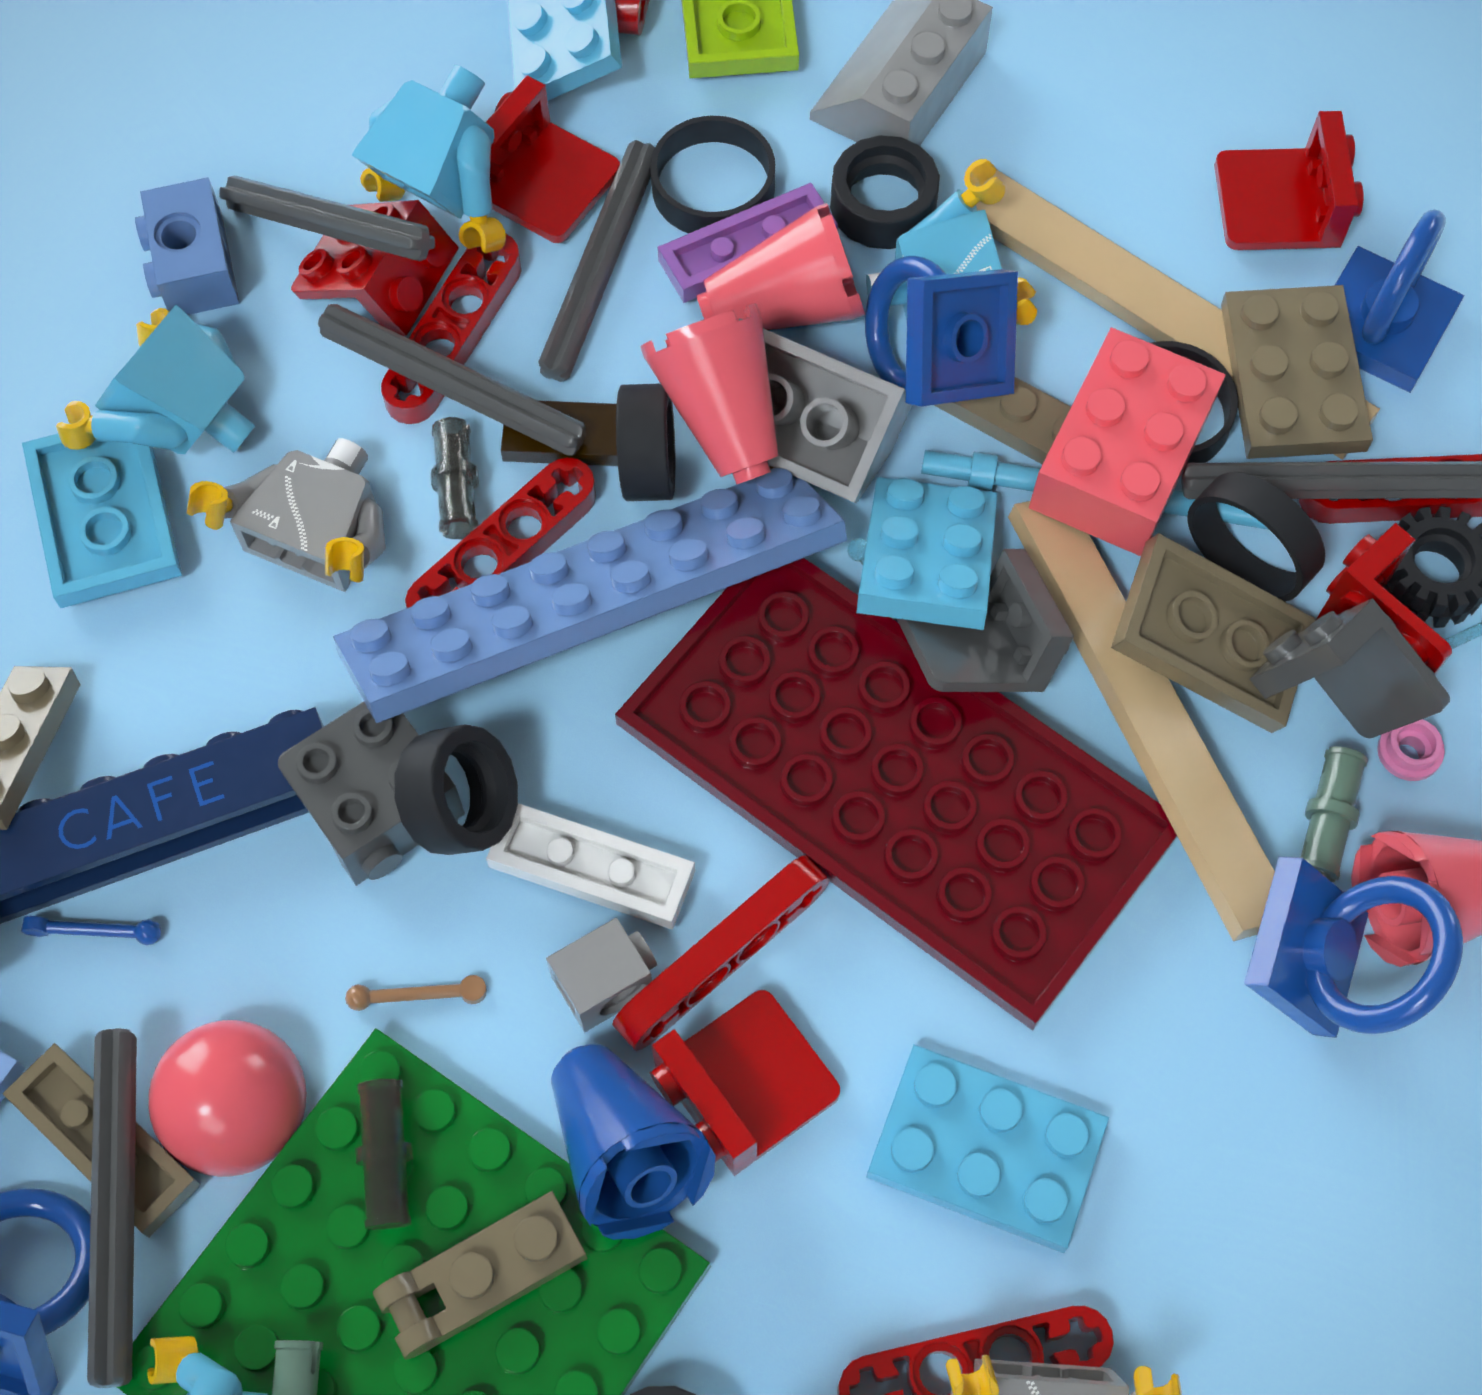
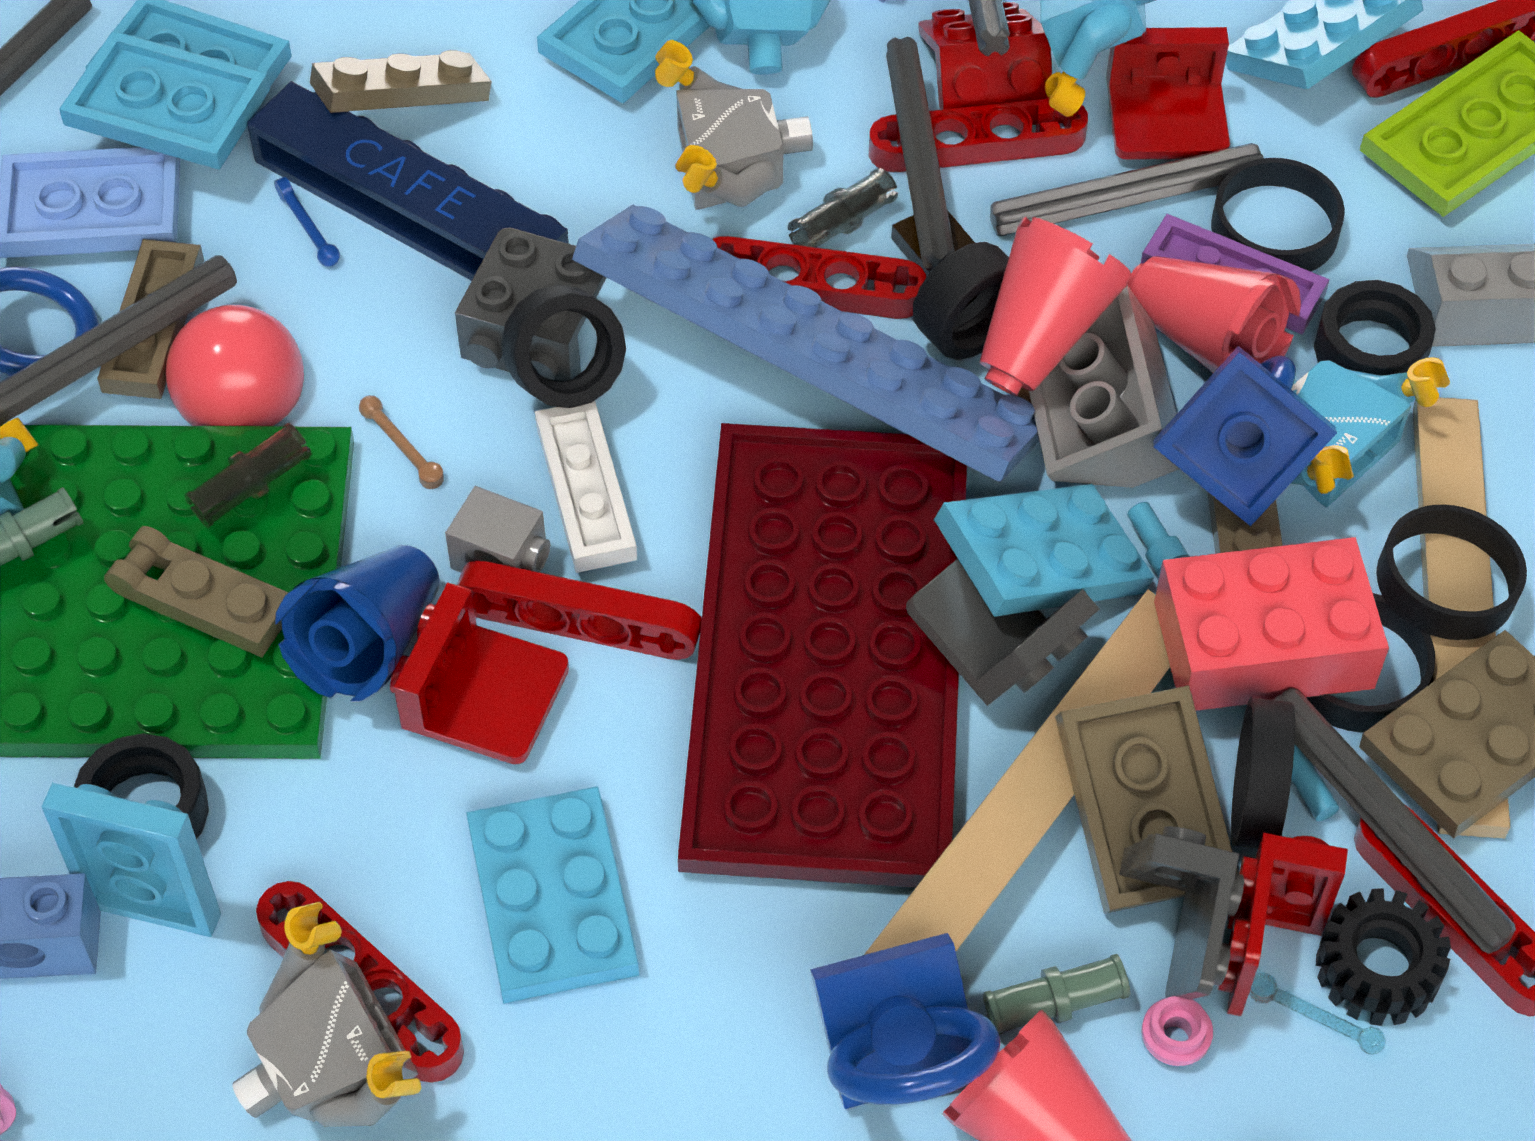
camera: 55 degrees right, 10 degrees down
(1160, 246) = (1468, 526): none -> black tyre

